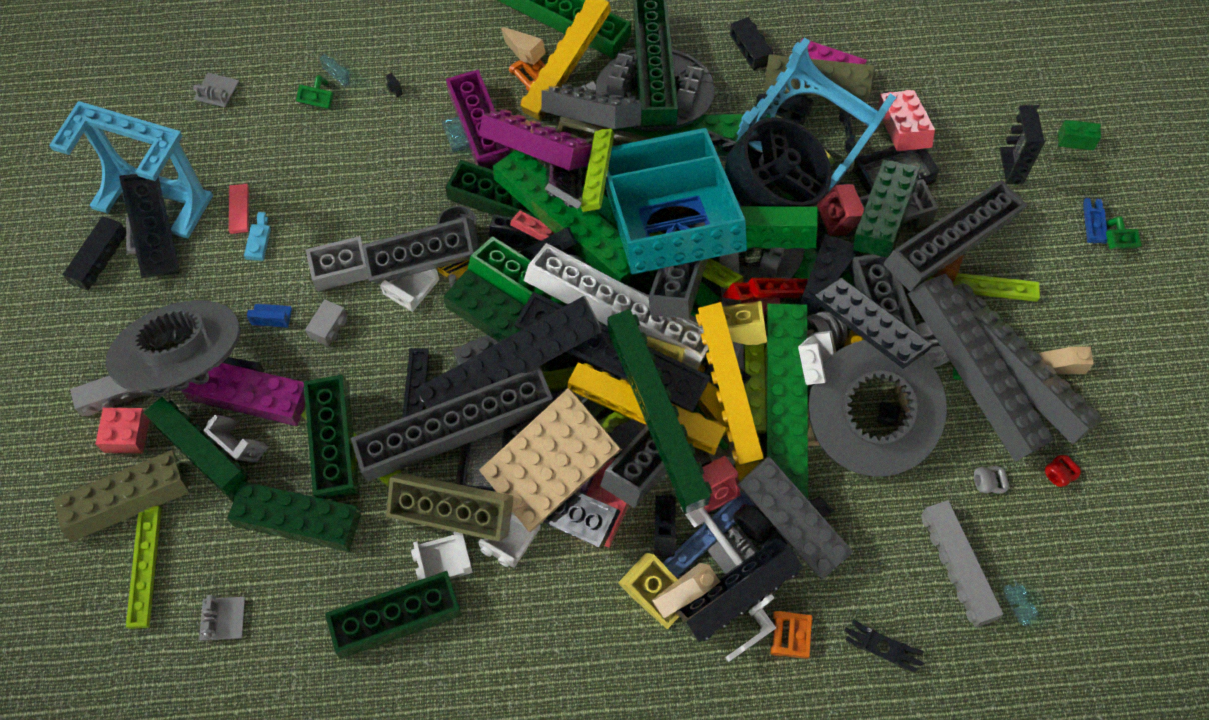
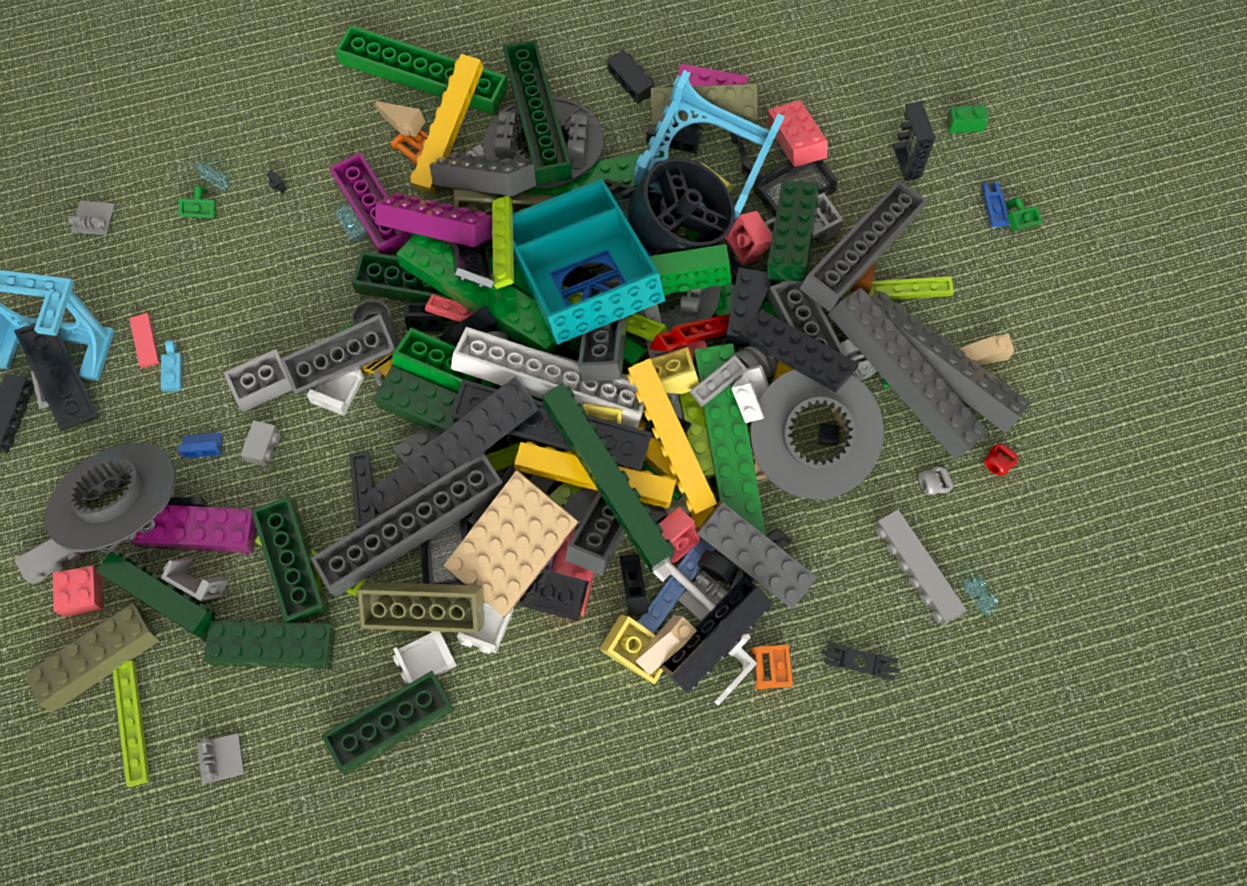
camera: 10 degrees left, 5 degrees up
(786, 338) = (718, 380): none -> light grey tile

